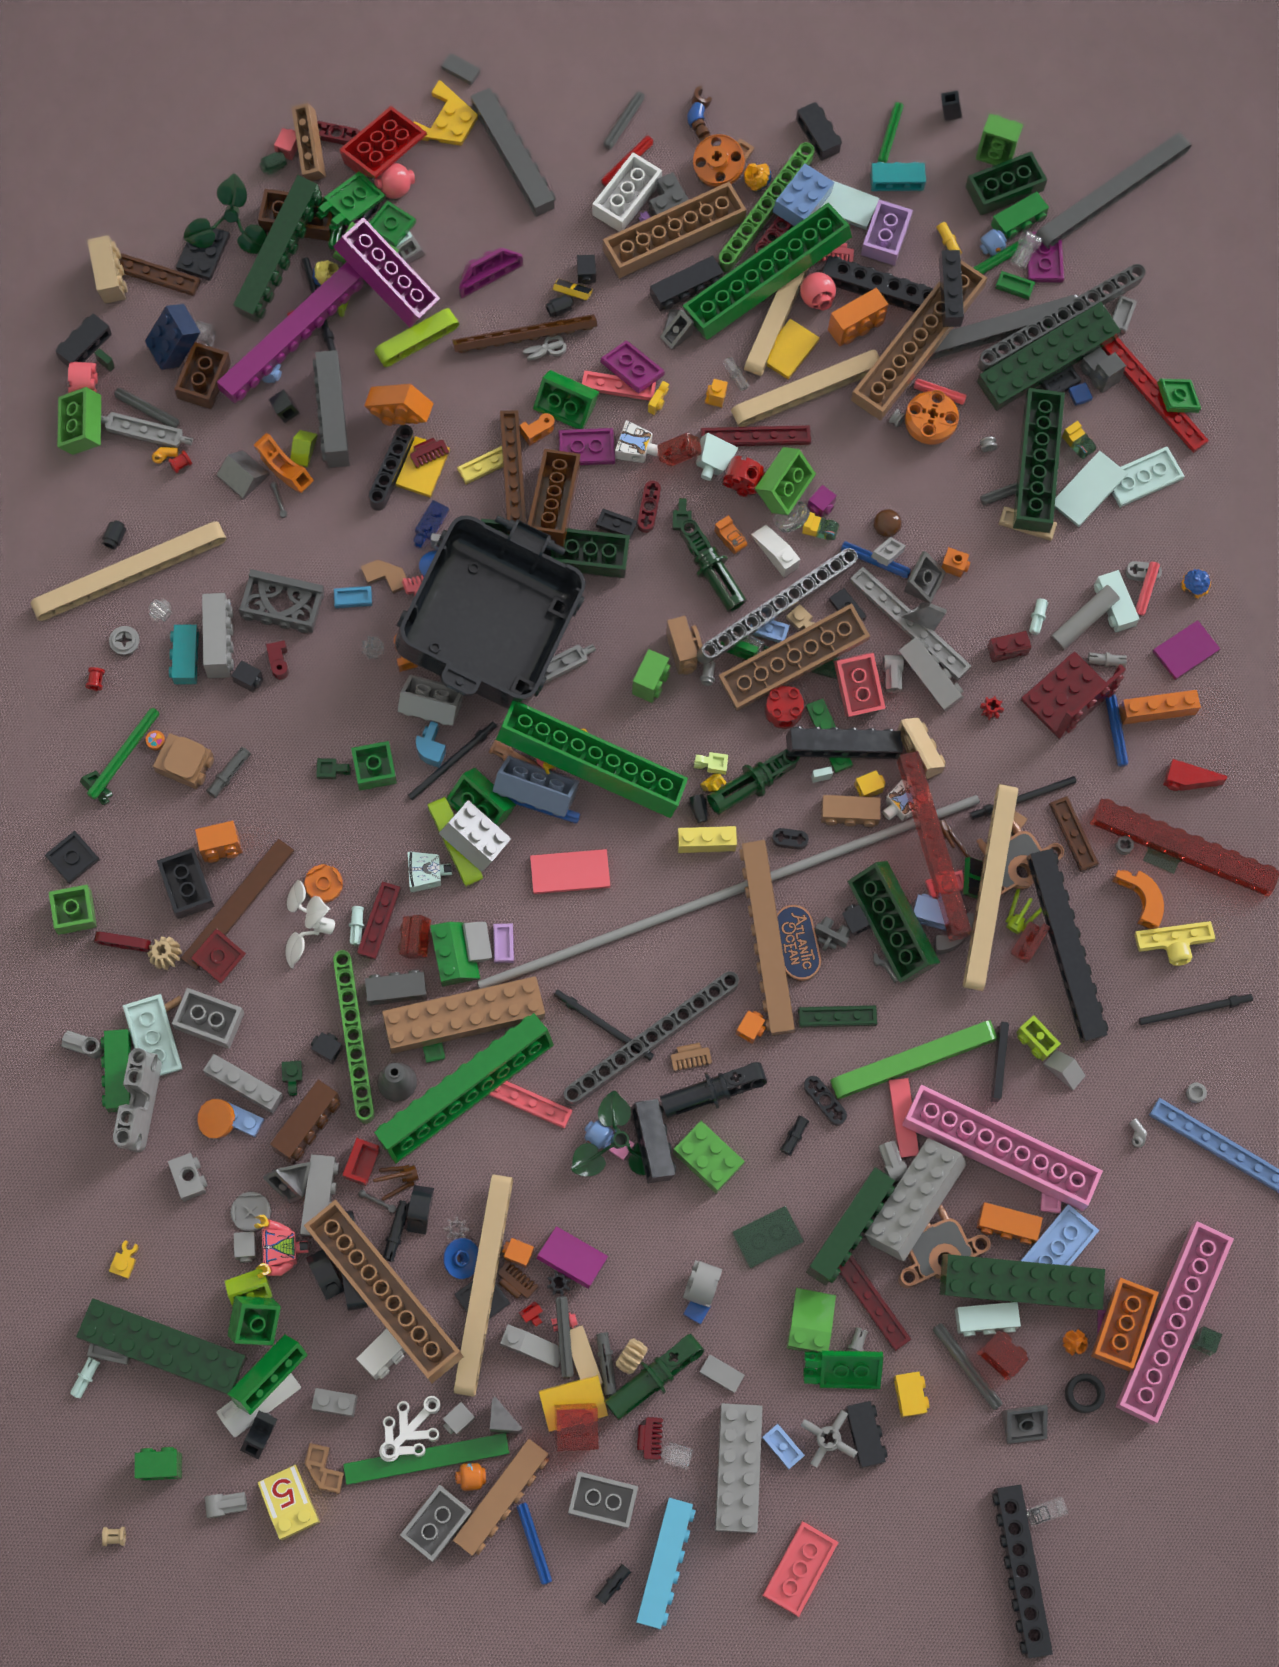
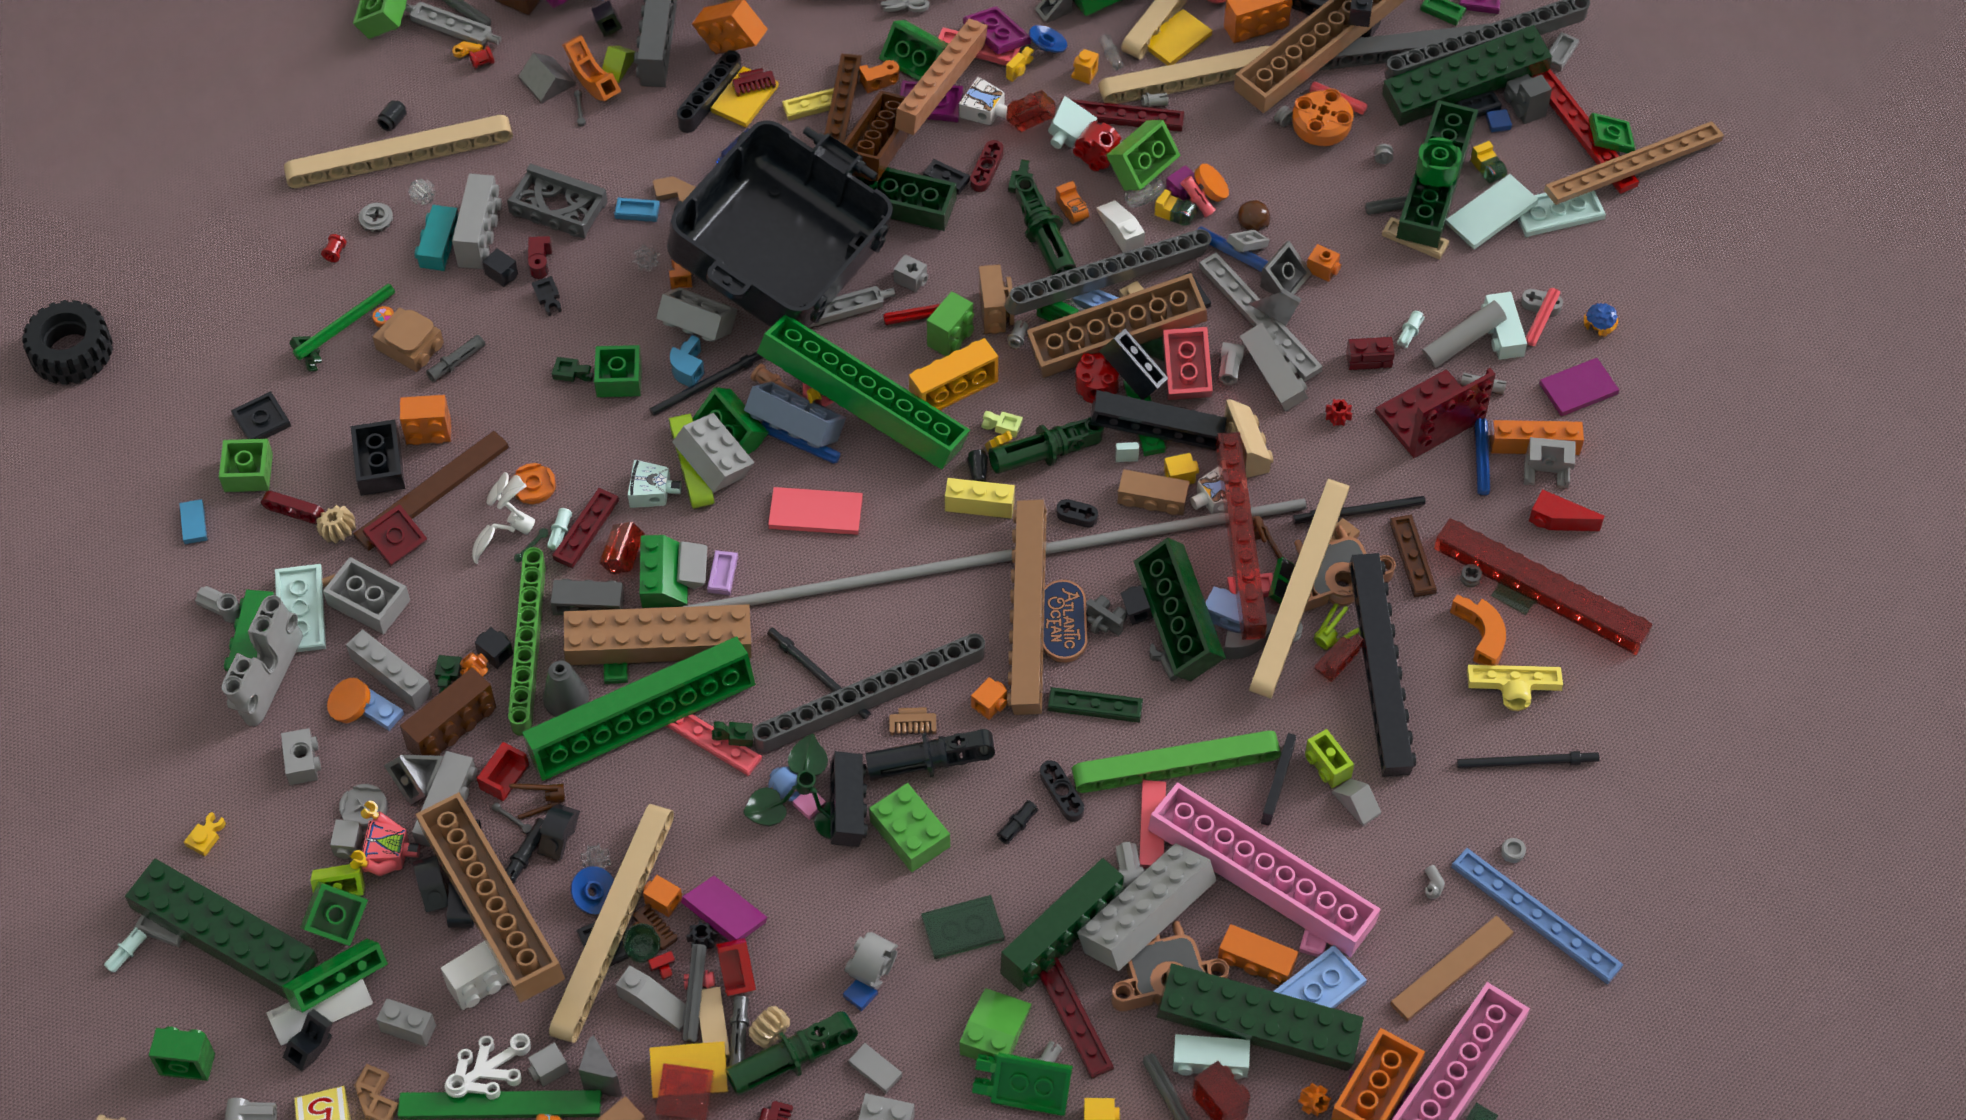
camera: 15 degrees right, 15 degrees down
(38, 968) = (193, 521): none -> dark azure tile
(293, 694) = (547, 293): none -> black plate
(314, 1069) = (476, 661): none -> orange gear
(343, 929) = (543, 532): none -> clear green hinge
(512, 1301) = (641, 943): none -> clear green hair
(547, 1093) = (736, 733): none -> dark green plate
(594, 1309) = (736, 967): none -> red panel
(597, 431) = (941, 76): none -> nougat brick
(601, 622) = (910, 273): none -> light grey brick
(620, 664) = (909, 314): none -> red axle
(664, 727) = (956, 375): none -> light orange brick
(678, 369) = (1047, 39): none -> blue dish
(783, 417) = (1151, 100): none -> light grey pin
(816, 696) = (1133, 364): none -> black brick
(838, 514) = (1197, 196): none -> coral pin
(848, 497) = (1212, 181): none -> orange tile
(1042, 457) = (1438, 162): none -> green brick
(1163, 1206) = (1451, 968): none -> medium nougat tile
(1181, 725) = (1549, 456): none -> light grey panel
(1202, 424) = (1633, 163): none -> medium nougat plate

